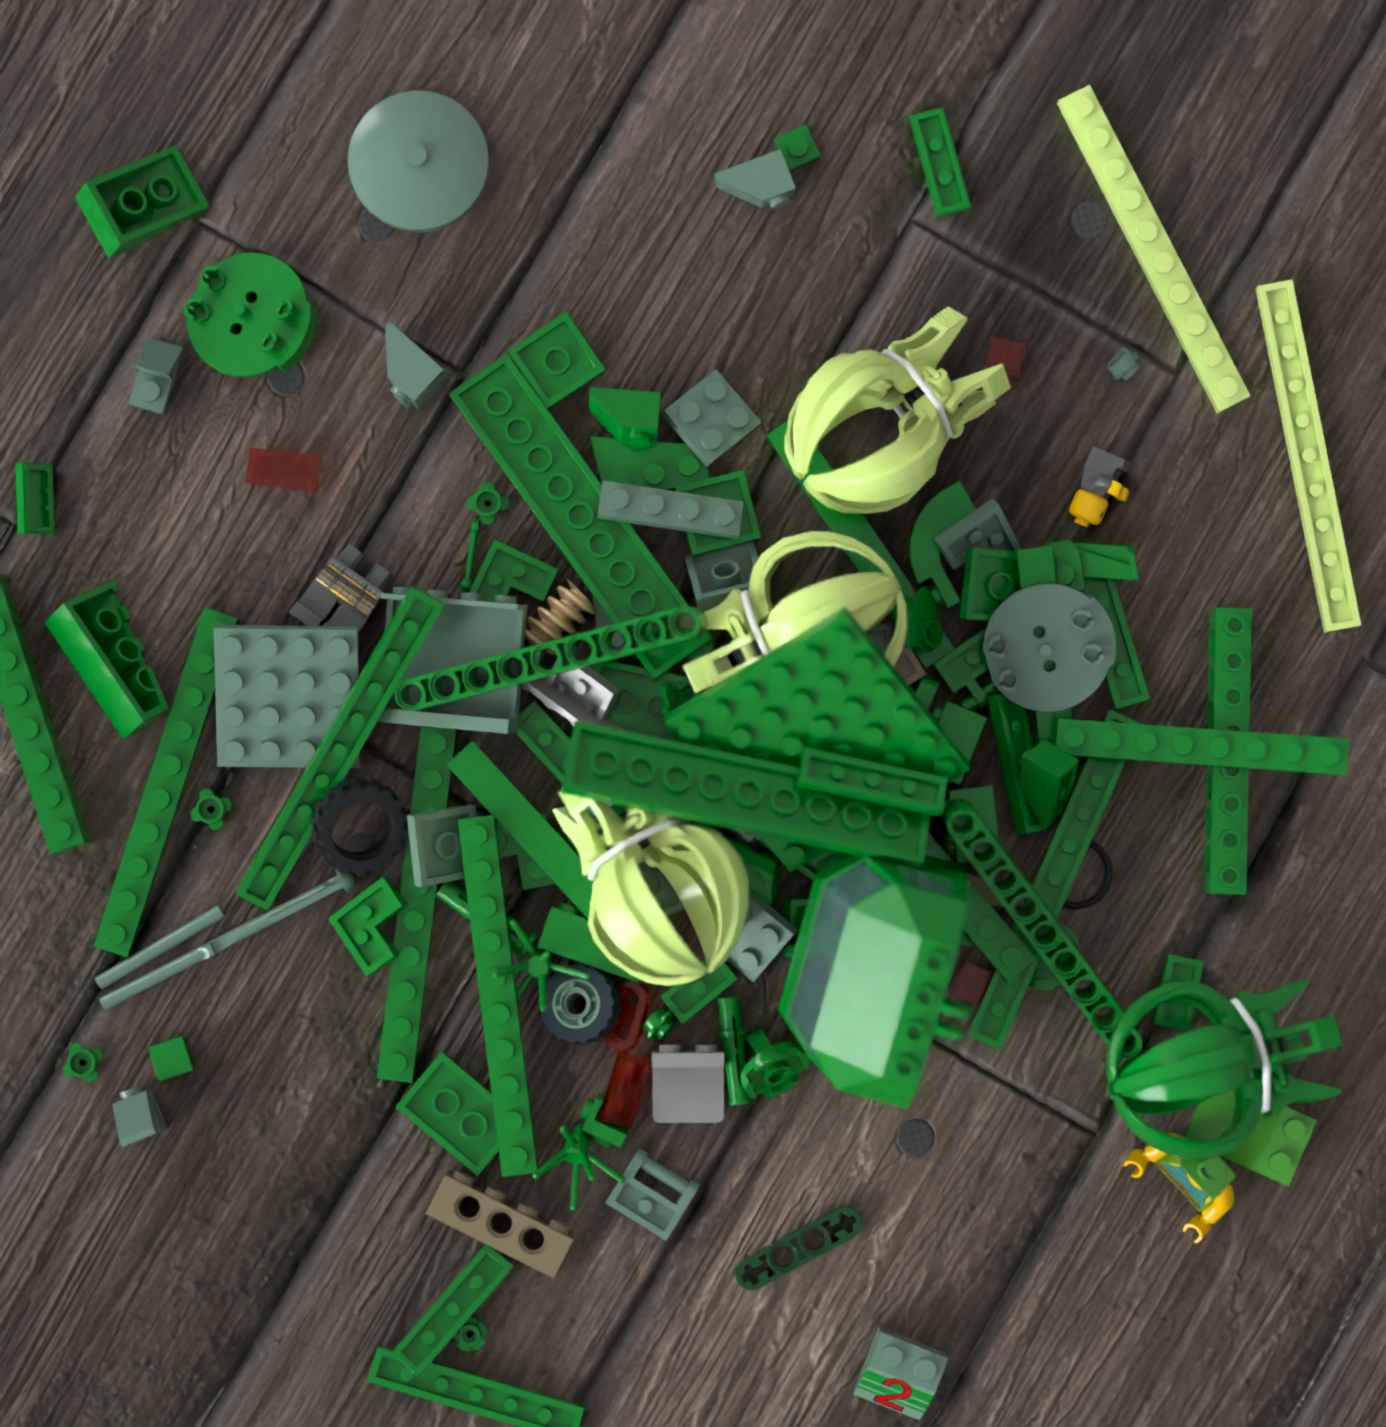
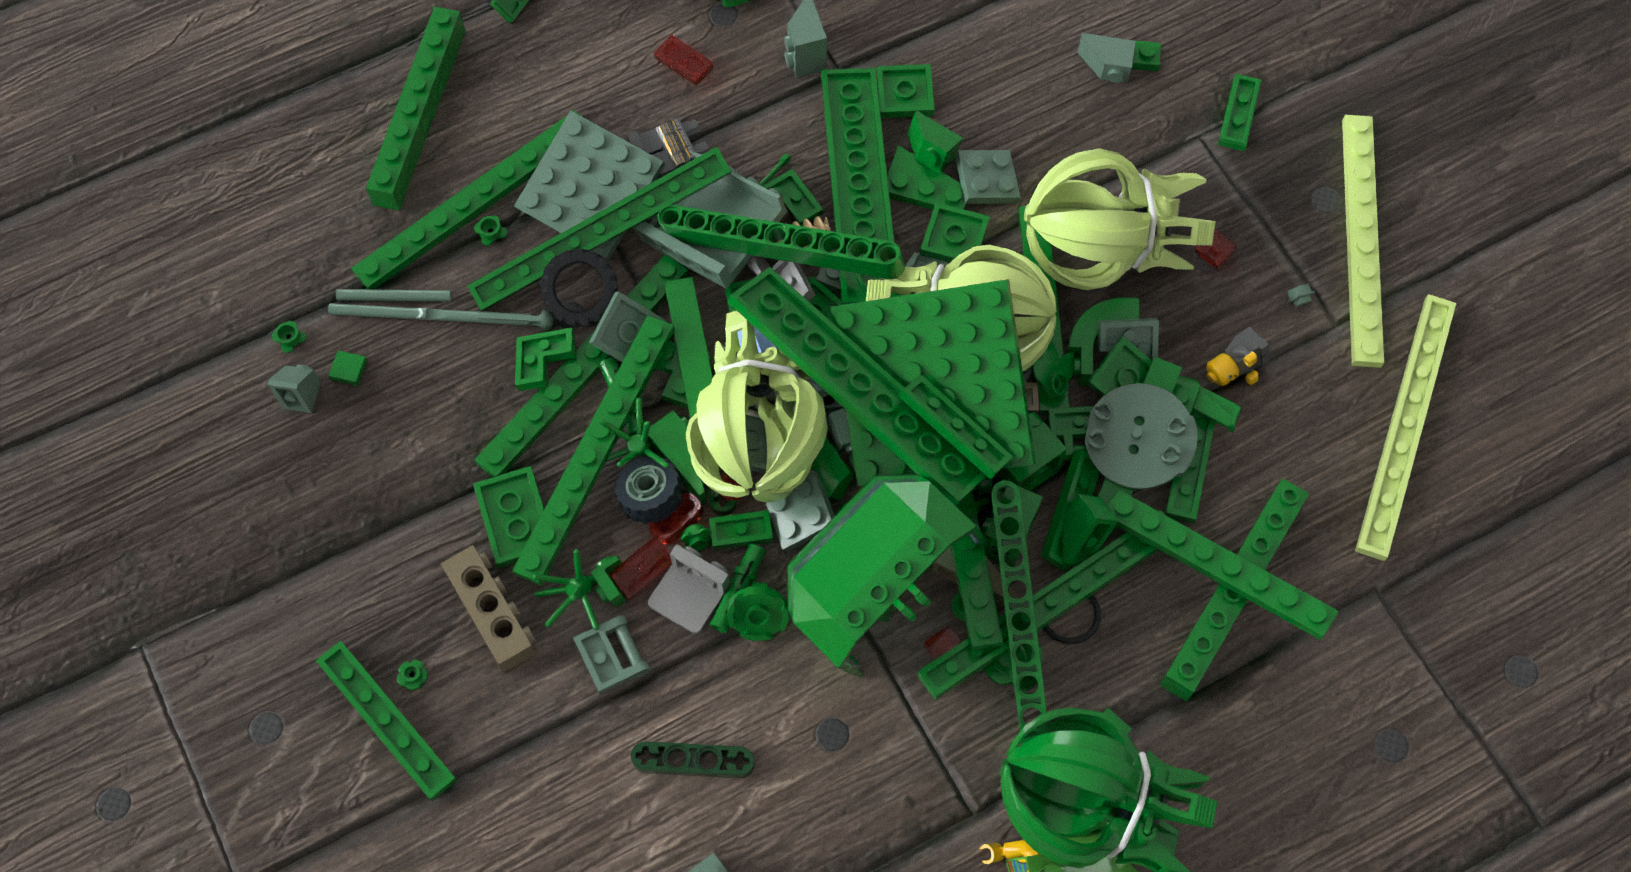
camera: 35 degrees right, 20 degrees down
(108, 658) = (492, 102): green wedge -> none
(452, 1310) = (411, 646): green plate -> none
(477, 503) = (799, 143): green plate -> none
(670, 509) = (923, 209): sand green plate -> none

